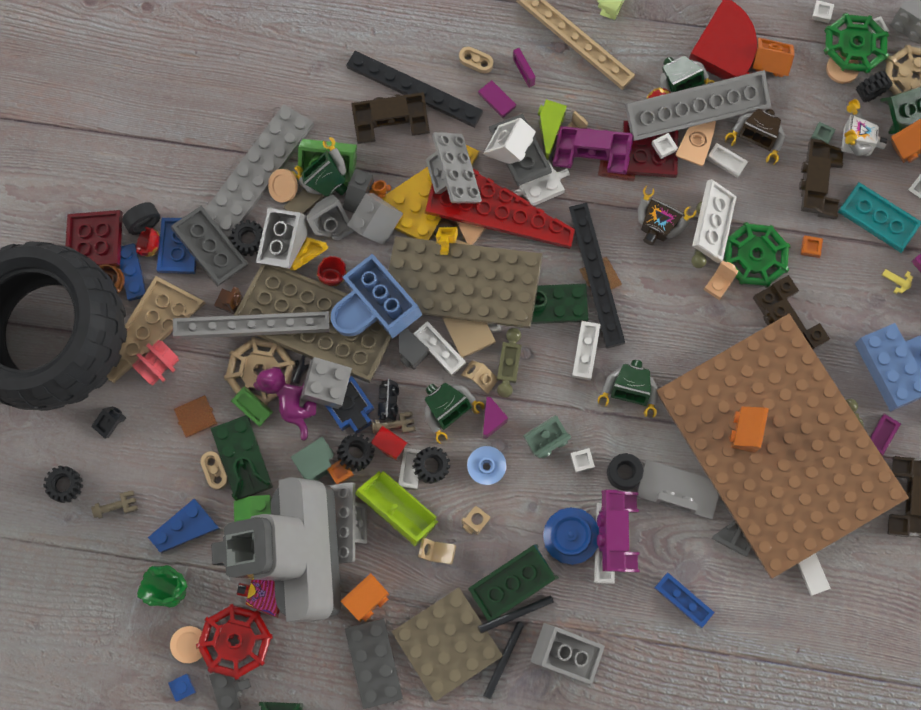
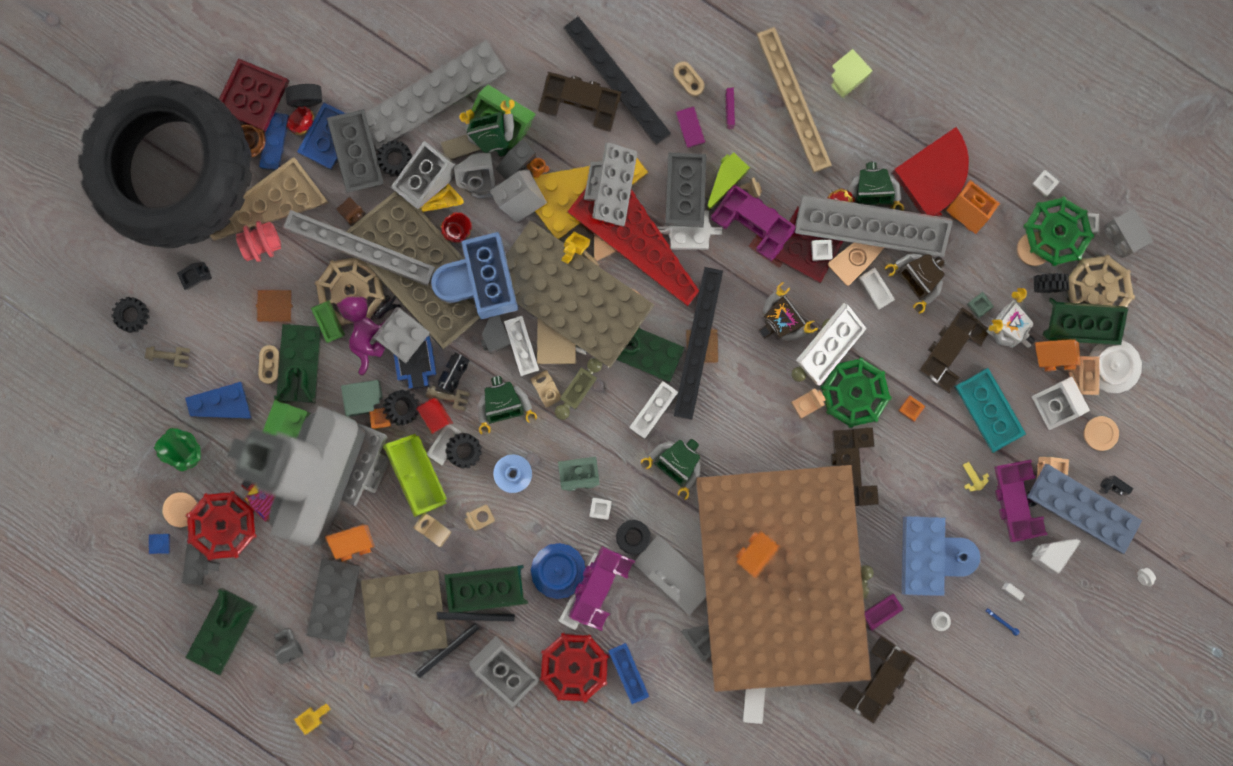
camera: 15 degrees right, 10 degrees up
(282, 185) = (448, 122): light nougat piece -> none
(494, 418) = (538, 434): magenta slope -> none
(510, 141) = (678, 180): white slope -> none
(635, 608) = (566, 659): none -> red plate

